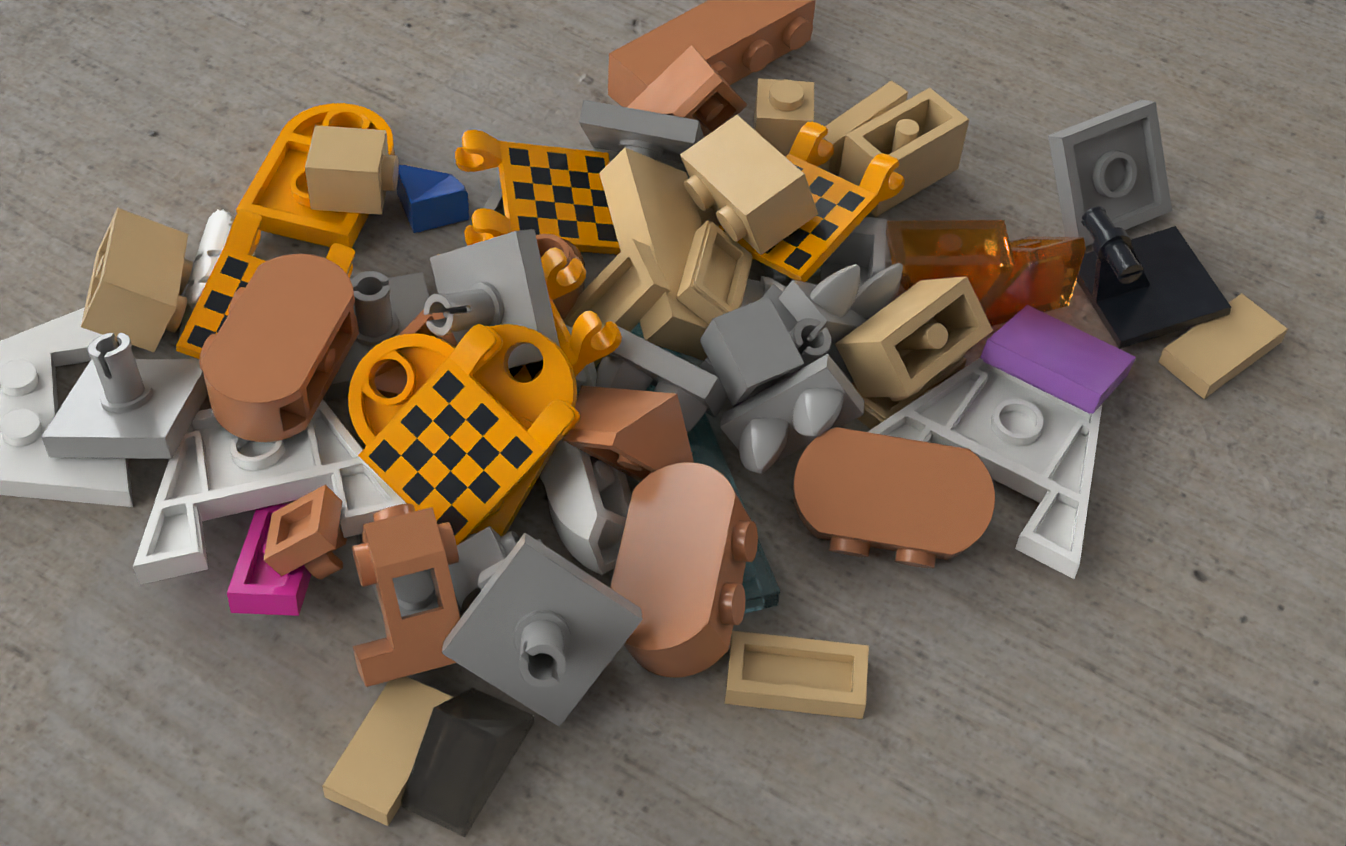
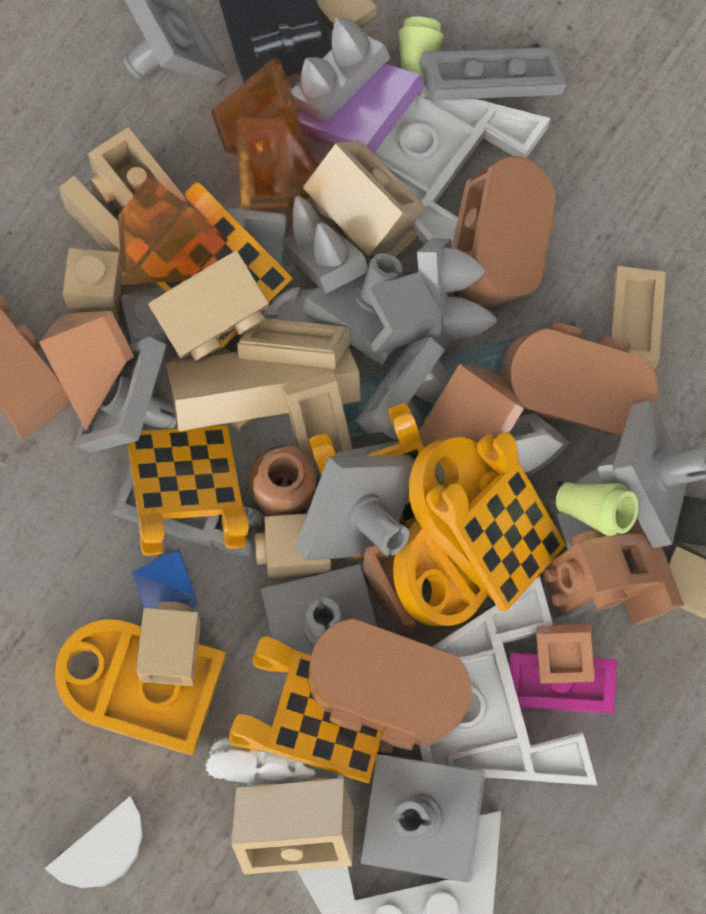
camera: 90 degrees left, 20 degrees up
(149, 156) = (103, 851): none -> white tile
(480, 539) = (602, 506): none -> yellowish green cone
(826, 140) = (164, 237): none -> clear orange slope
(1113, 340) = (334, 79): none -> light grey tile
(1135, 503) = (492, 73): none -> light grey tile
(1152, 428) = (416, 37): none -> yellowish green cone

